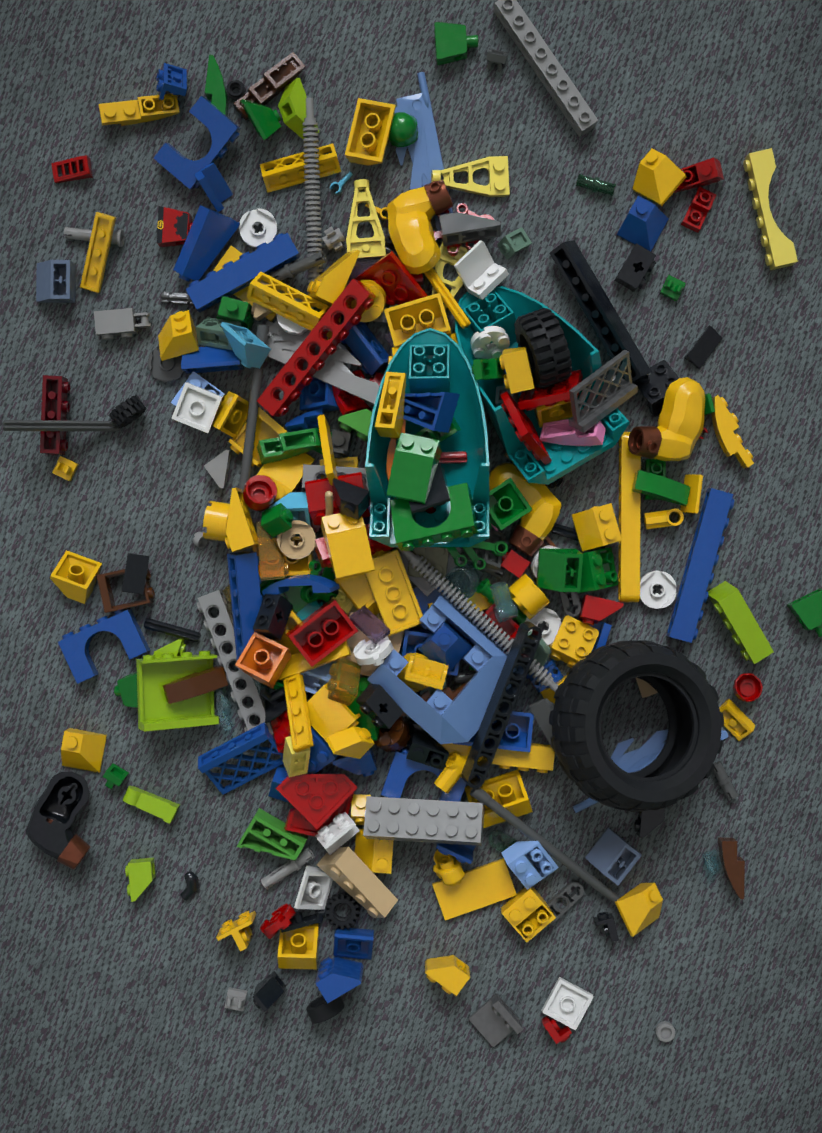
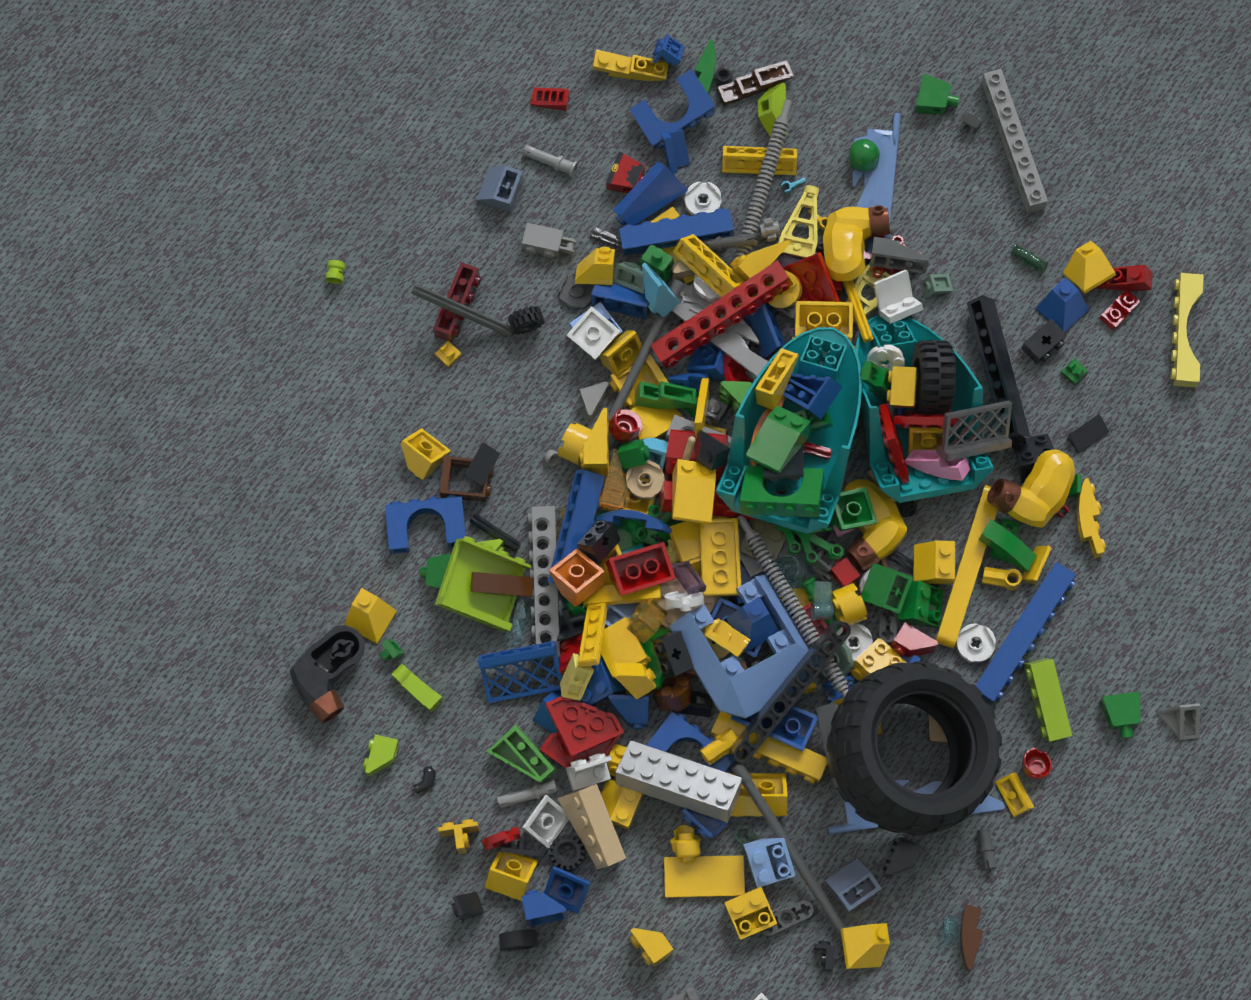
camera: 25 degrees right, 15 degrees down
(98, 252) = (549, 174): yellow tile -> none
(235, 999) = (430, 908): light grey tile -> none
(262, 117) = (739, 106): green slope -> none
(369, 132) = (833, 147): yellow slope -> none
(427, 751) = (703, 719): black slope -> none
(497, 171) = (940, 222): light yellow plate -> none

